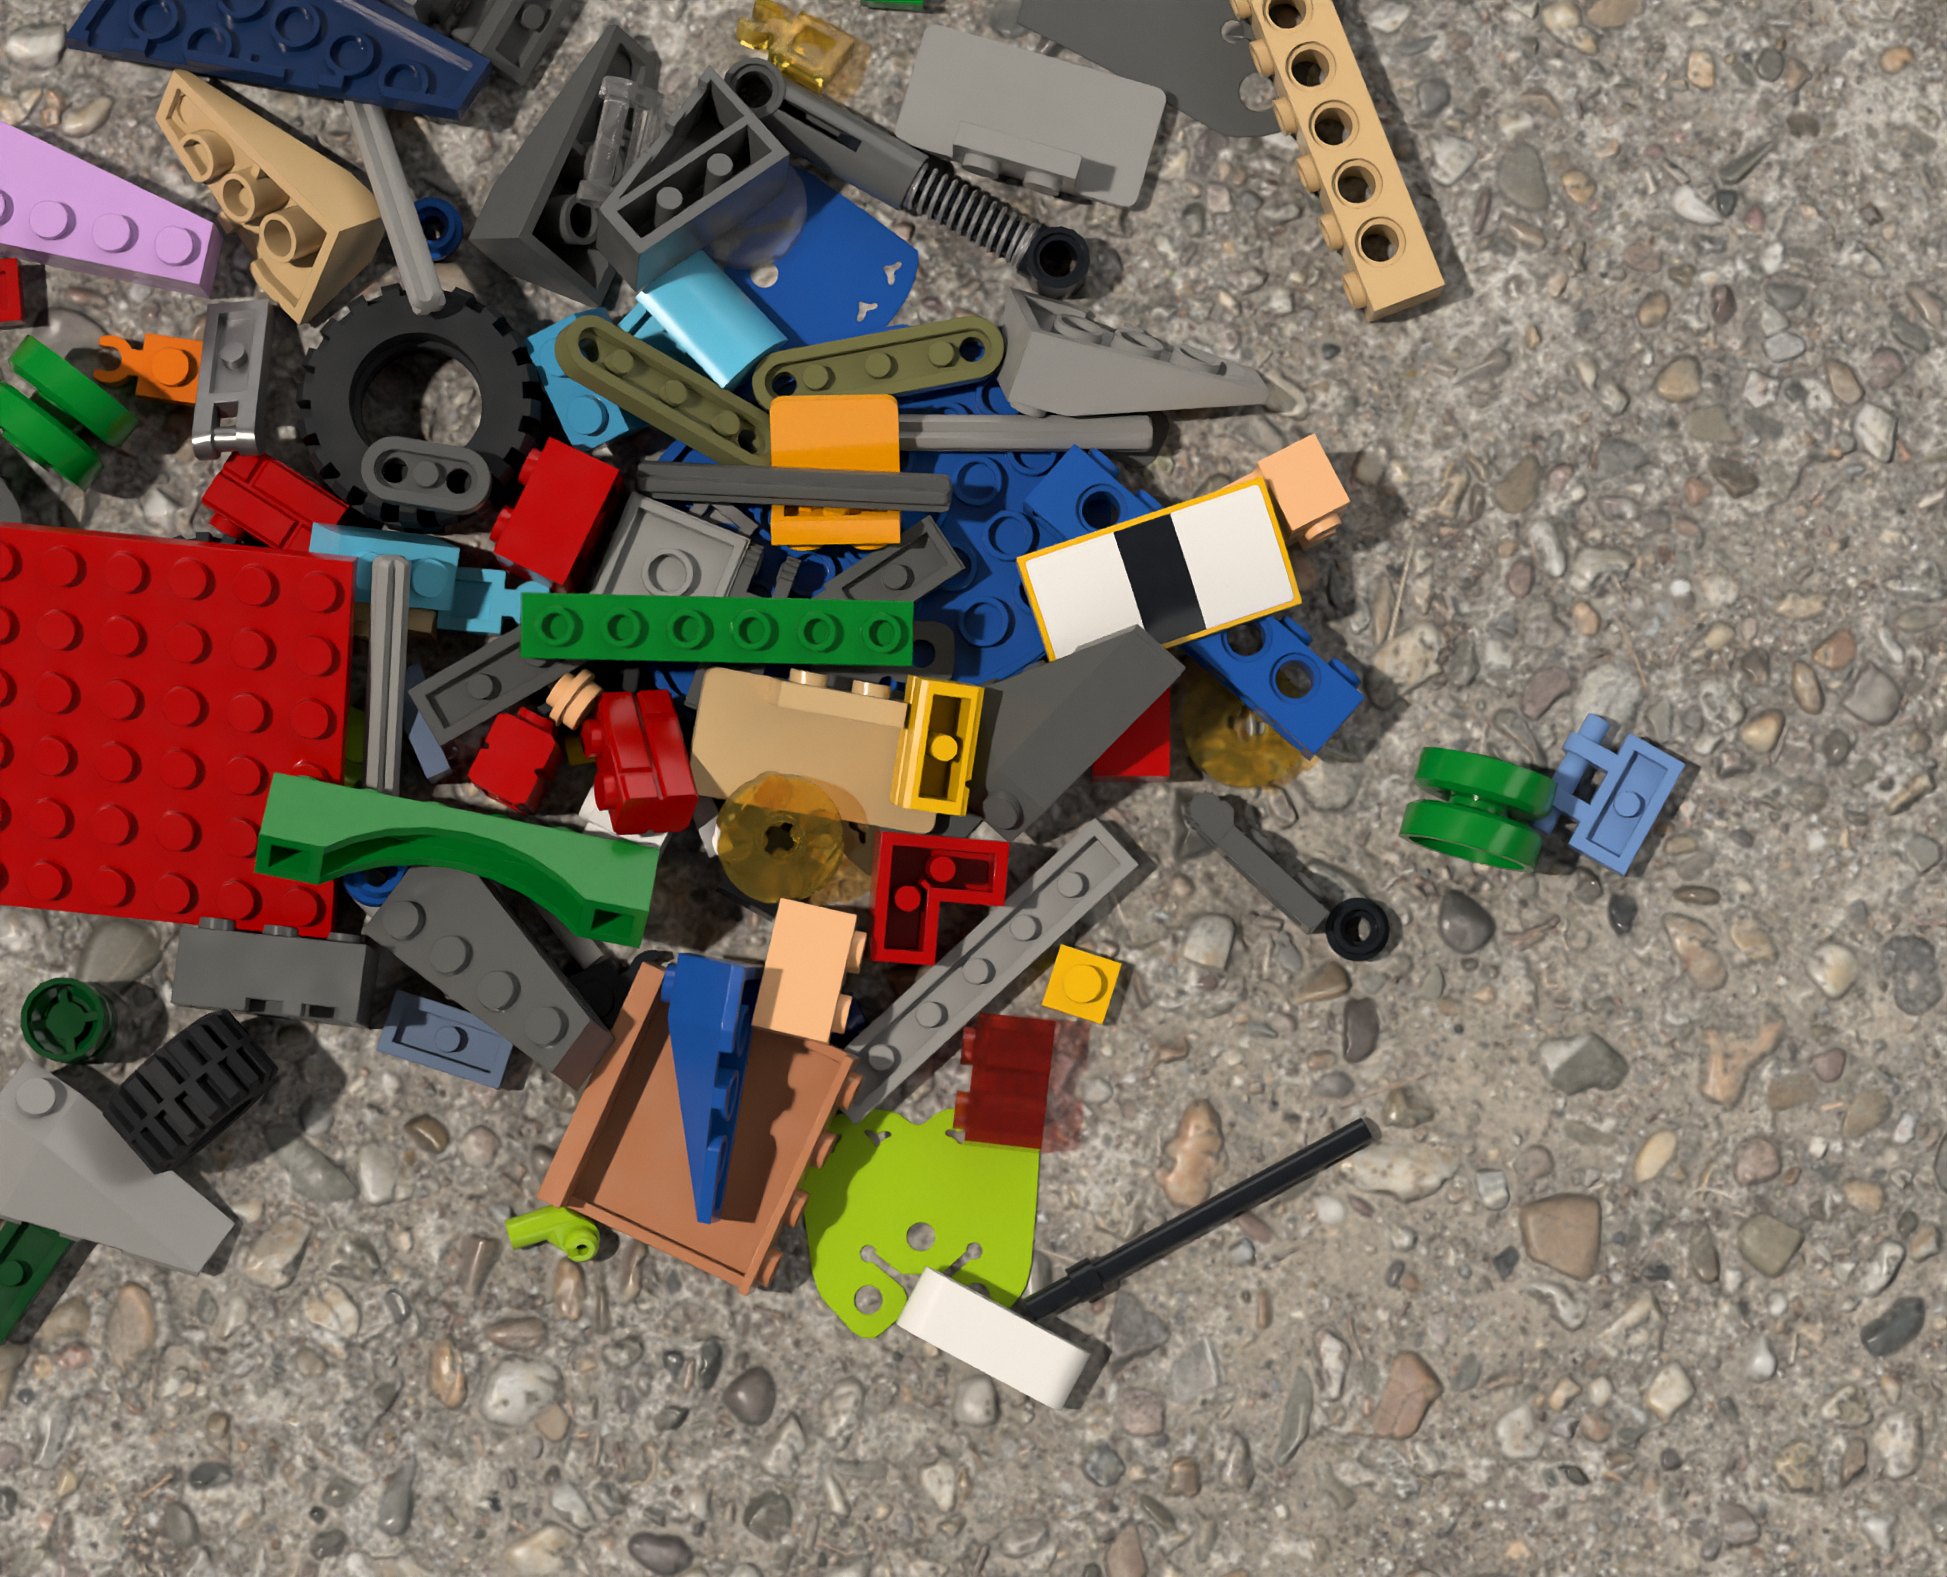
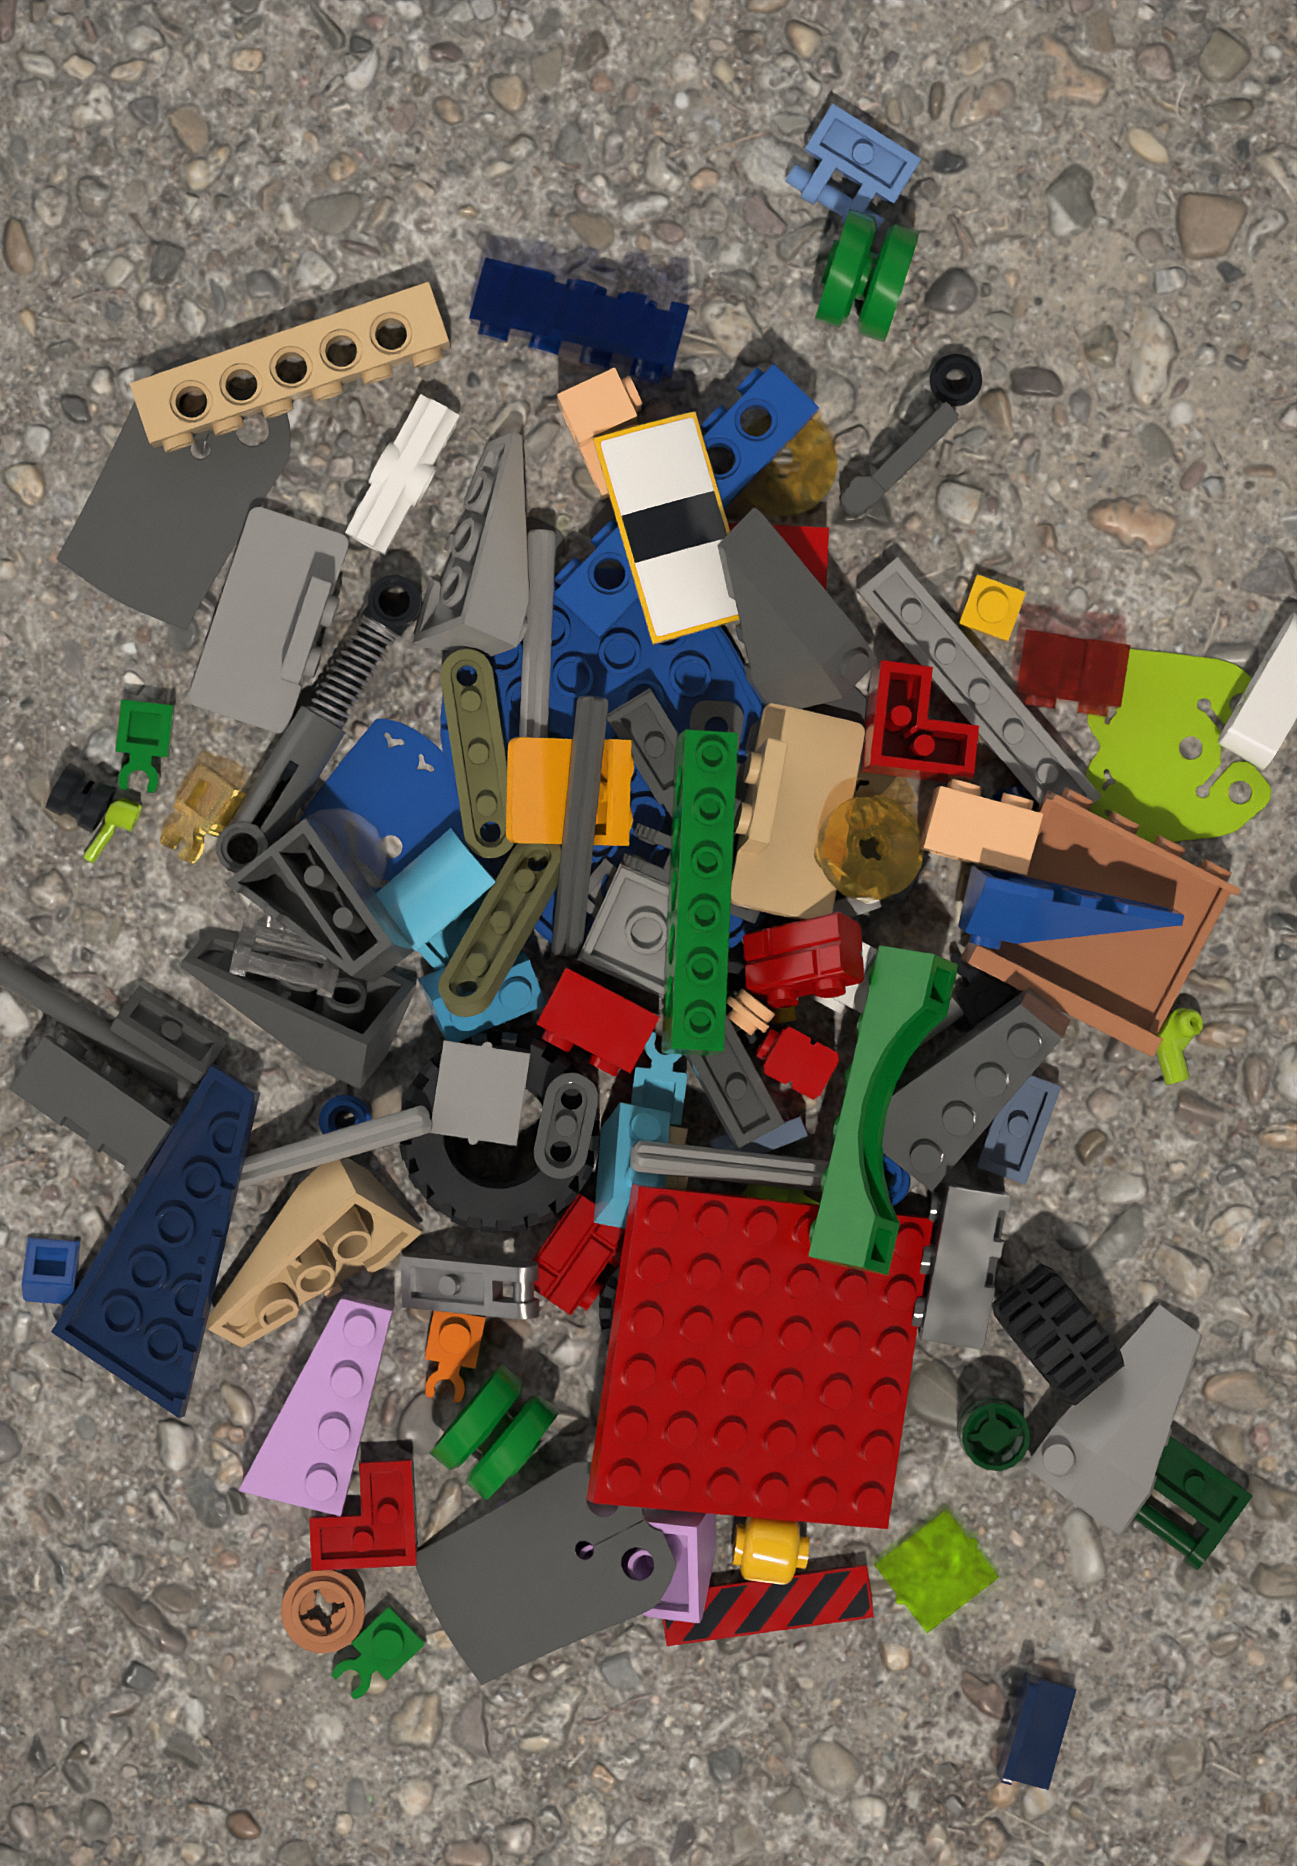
camera: 85 degrees left, 5 degrees up
(464, 373) = (480, 1093): none -> light grey piece
(936, 745) = (800, 714): yellow brick -> none
(1087, 1278) = (1231, 613): black bar -> none
(1211, 267) = (402, 474): none -> white piece
(1408, 469) = (578, 320): none -> clear blue wedge

